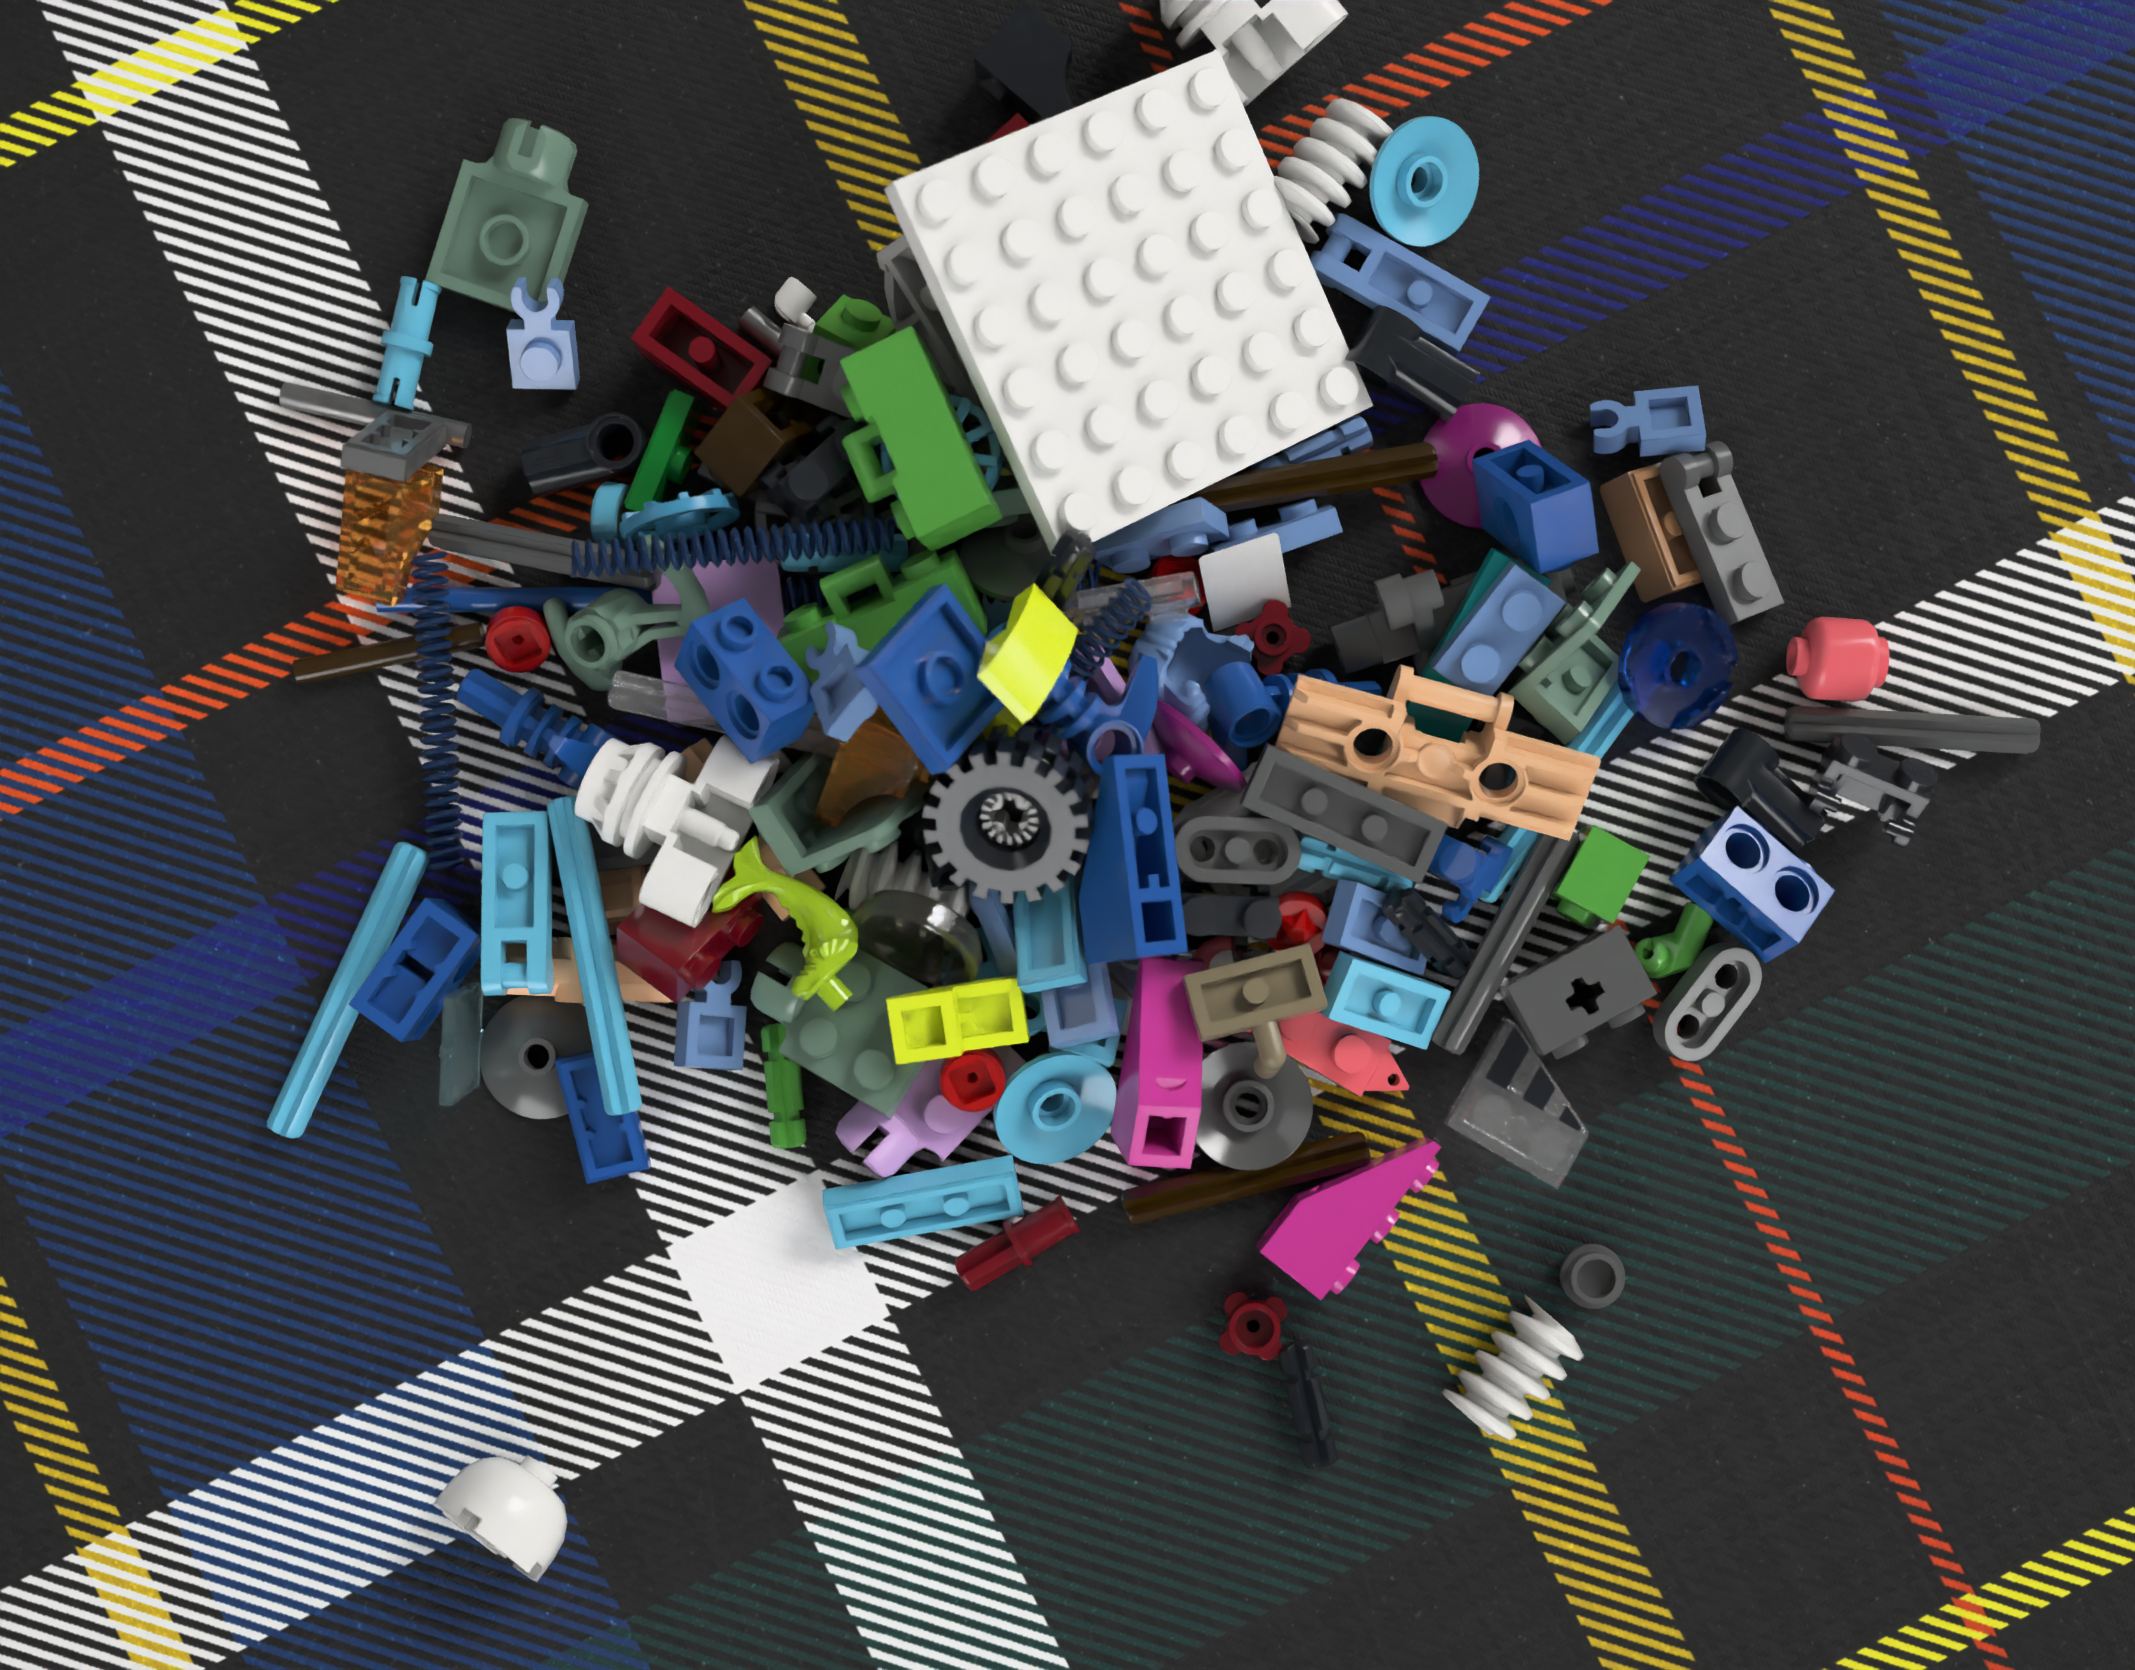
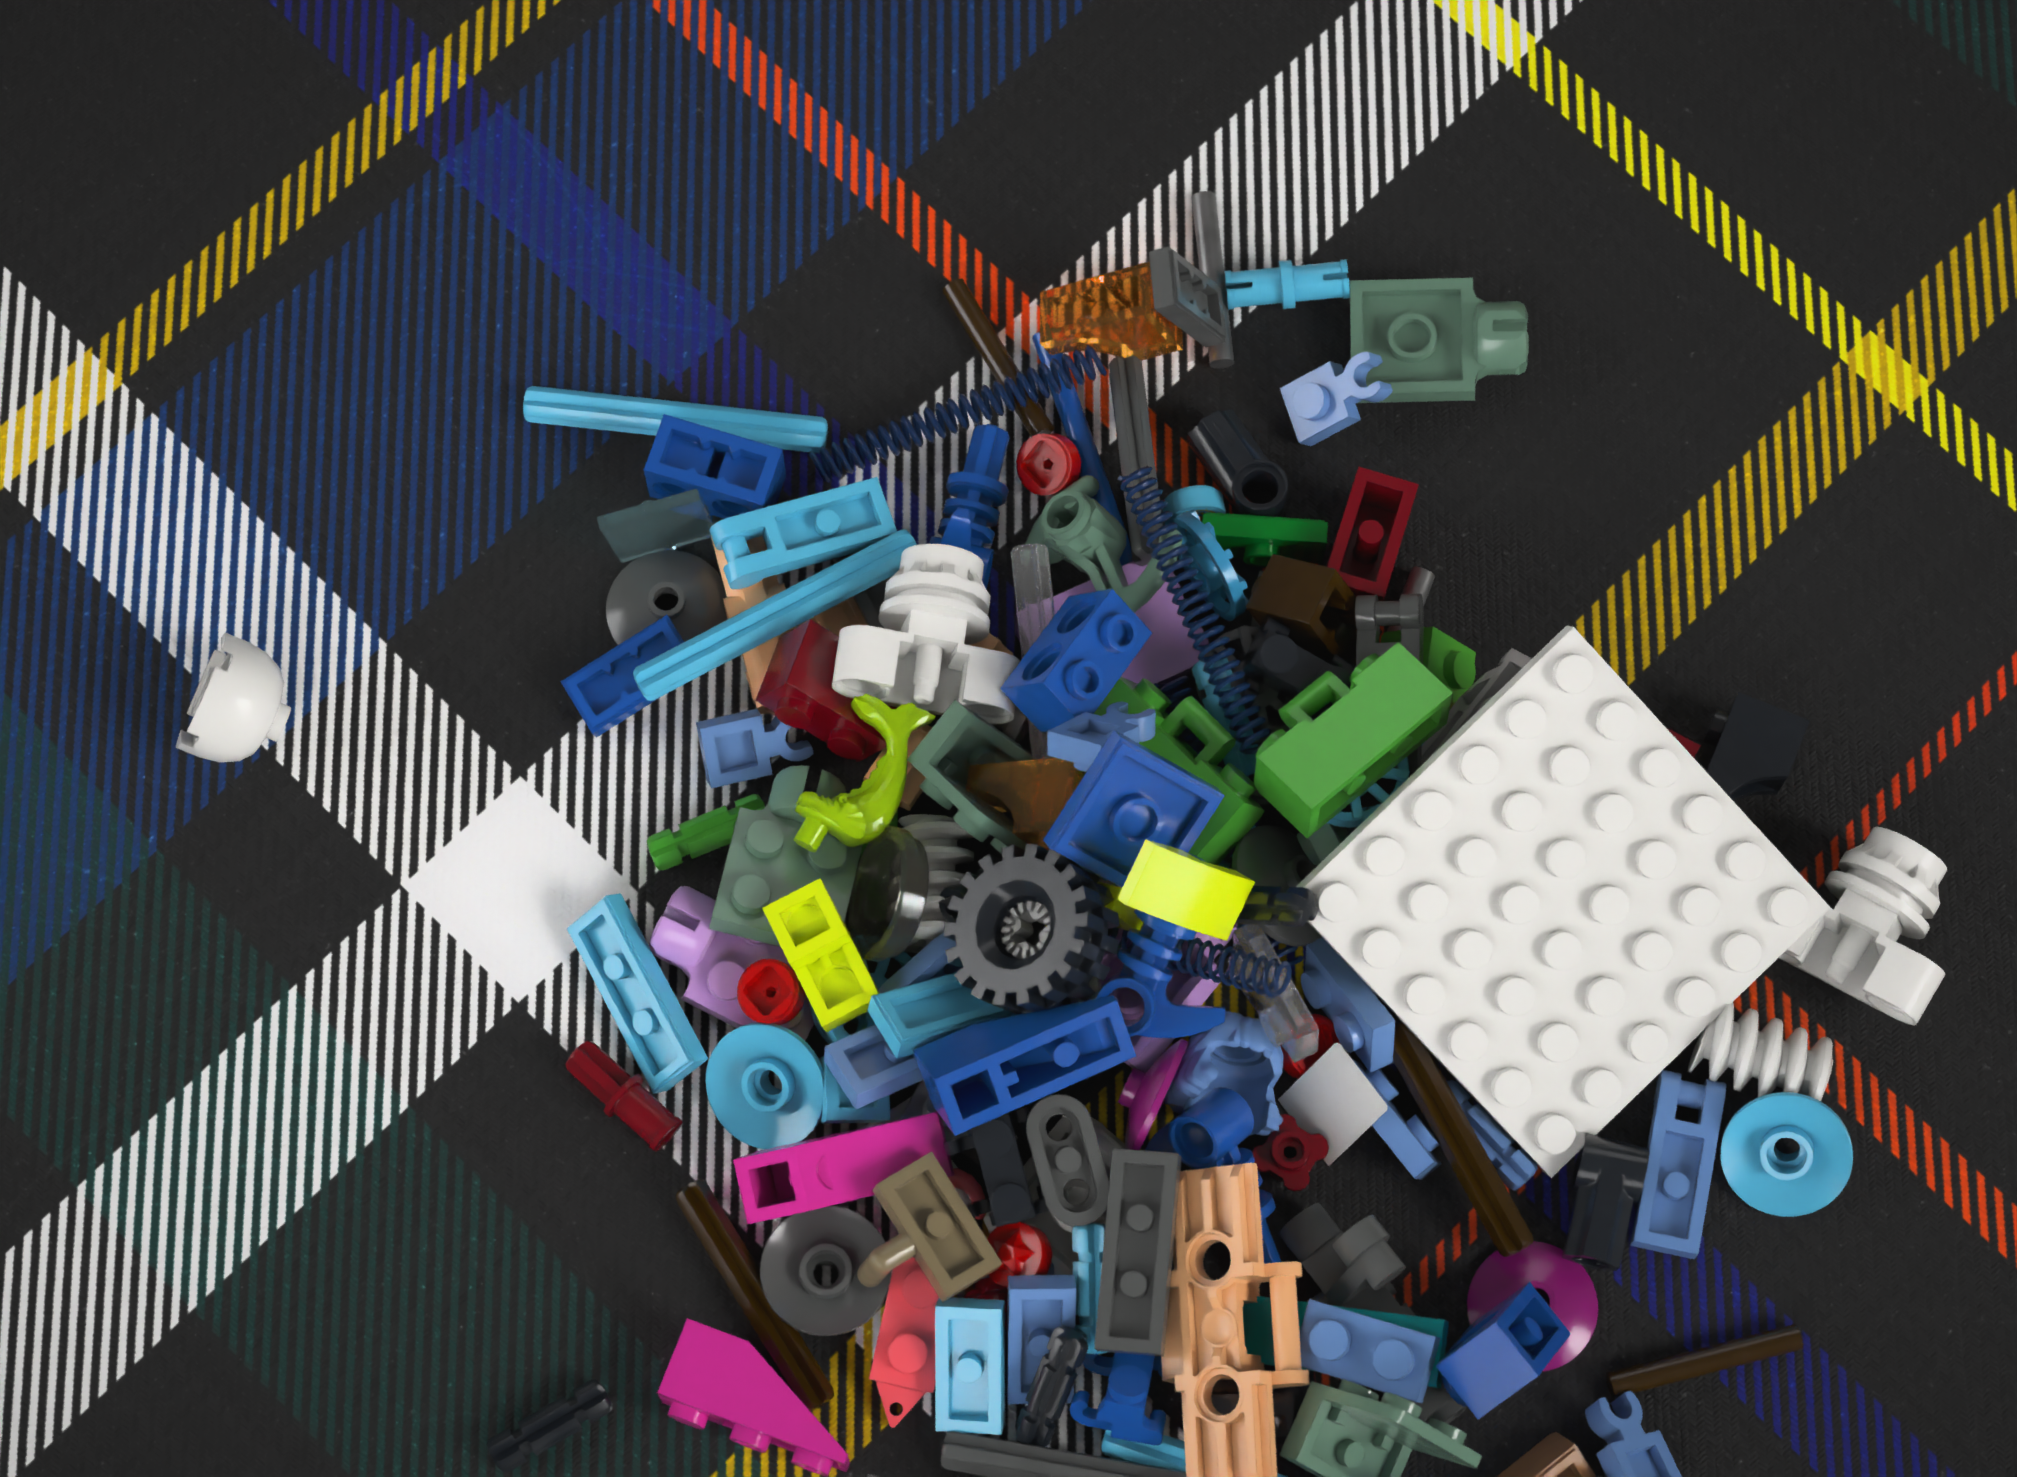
camera: 70 degrees right, 15 degrees down
(793, 302) = (1451, 609): white hand -> none
(1261, 1342) = (595, 1337): dark red plate -> none
(1581, 328) = (1704, 1360): none -> dark brown bar

